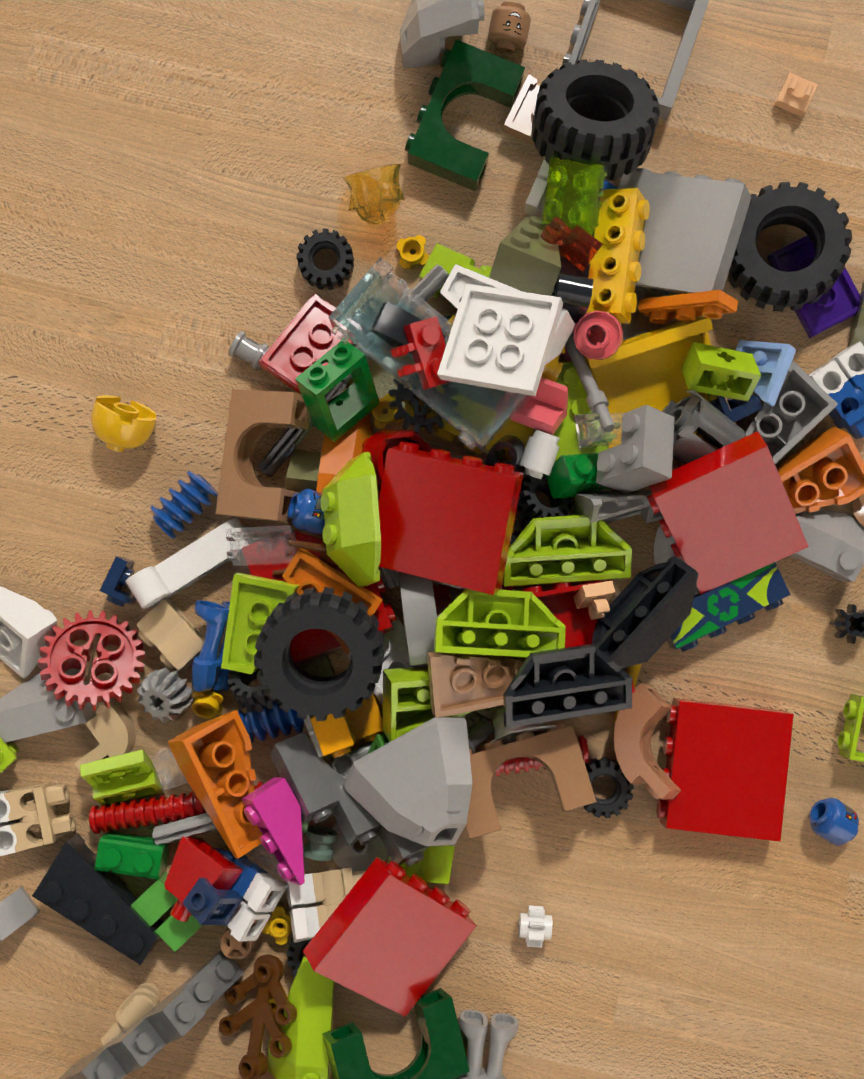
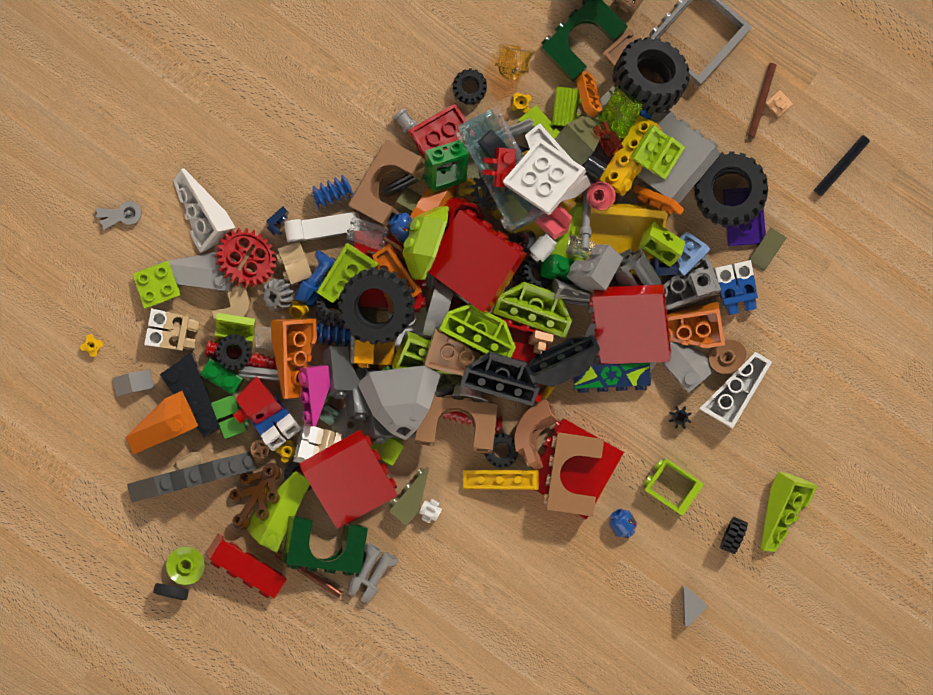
camera: 20 degrees right, 0 degrees up
(71, 968) = (163, 423): none -> orange wedge
(122, 424) = (315, 132): yellow cylinder -> none
(131, 832) = (222, 351): none -> black tyre
(210, 904) = (260, 417): dark blue bracket -> none
(481, 227) = (565, 106): none -> lime brick
(497, 932) = (409, 504): none -> olive slope
(510, 193) = (589, 94): none -> orange beam
(623, 834) = (501, 479): none -> yellow tile
(657, 231) = (657, 152): none -> lime slope
(706, 746) = (558, 497): none -> medium nougat arch
(768, 99) = (762, 99): none -> copper bar
(823, 402) = (702, 291): none -> light grey brick

